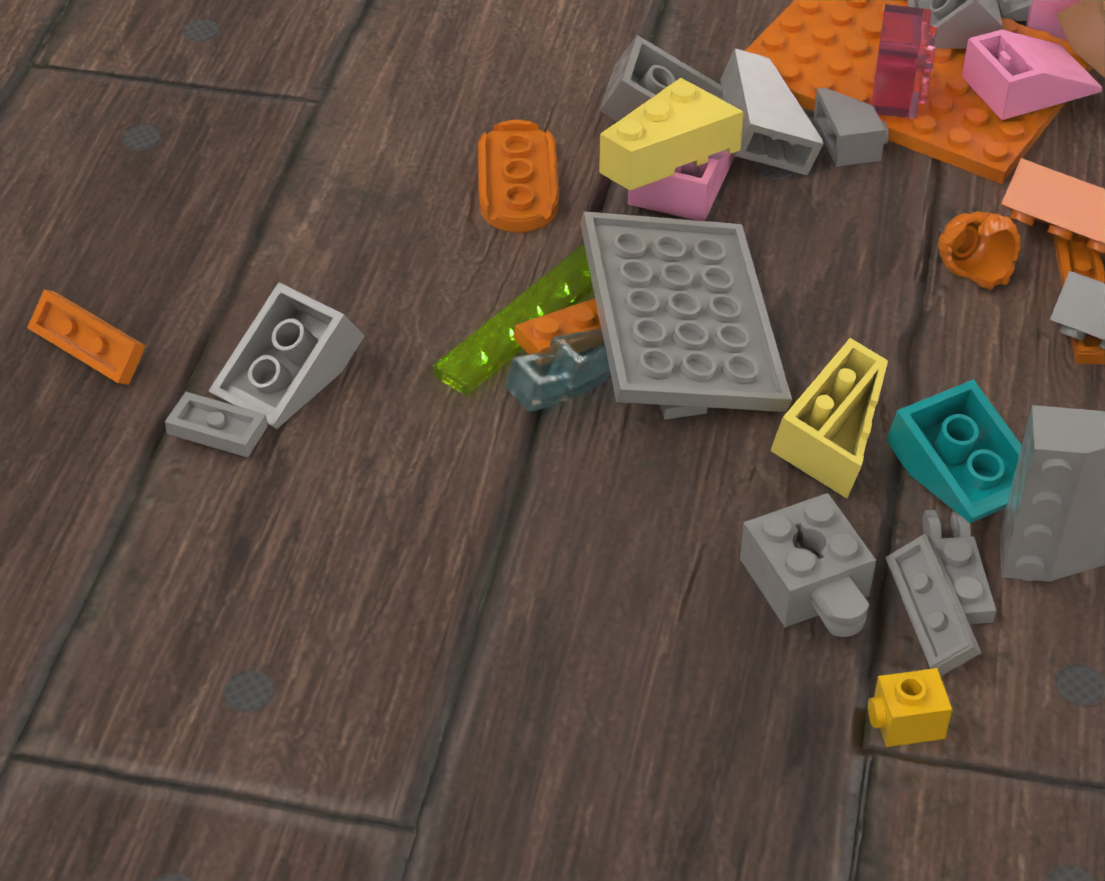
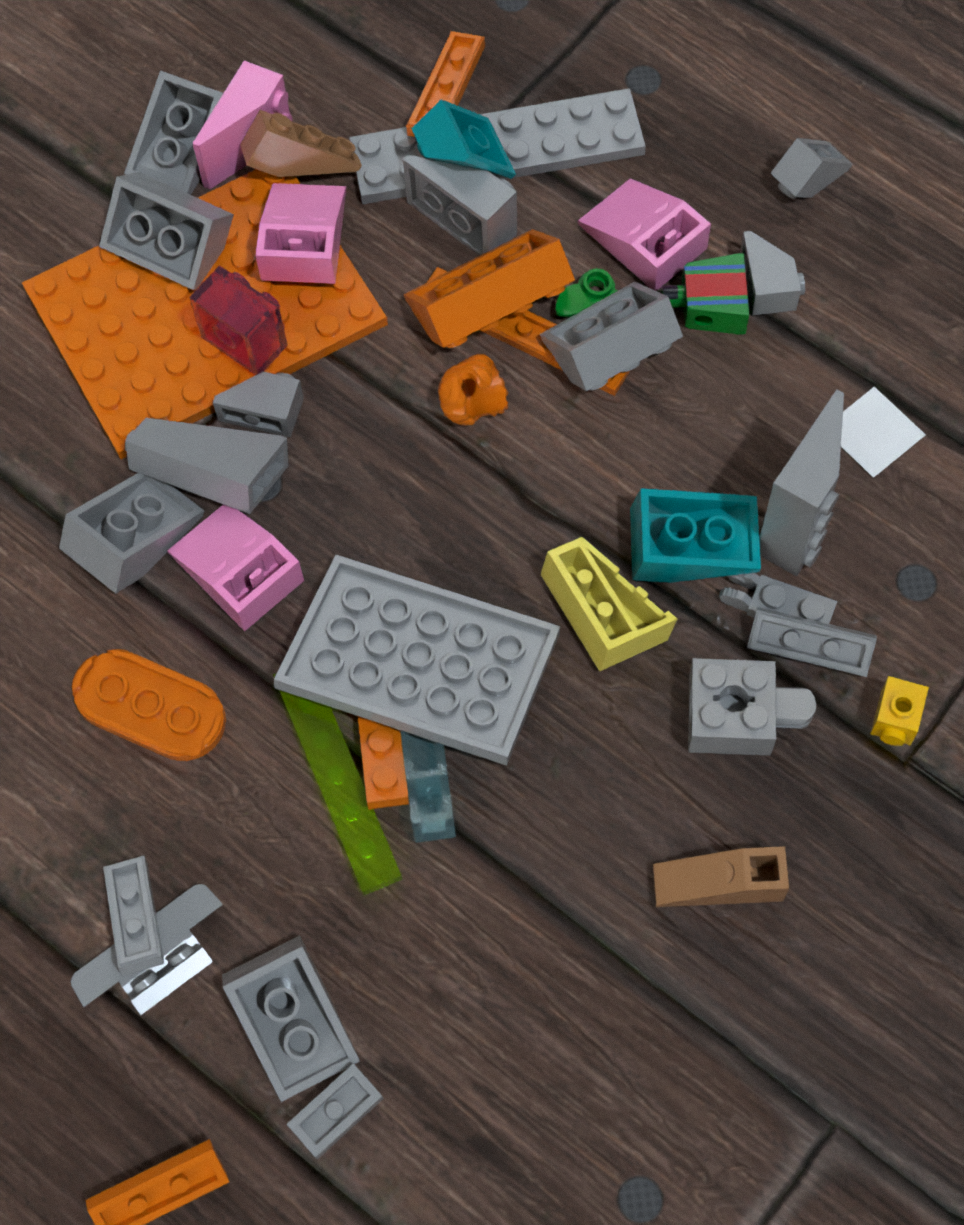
camera: 60 degrees left, 20 degrees up
(298, 263) = (180, 949): none -> light grey plate
(317, 224) = (133, 916): none -> light grey tile
(620, 624) = (723, 878): none -> medium nougat slope
(668, 132) = (237, 560): light yellow wedge -> none

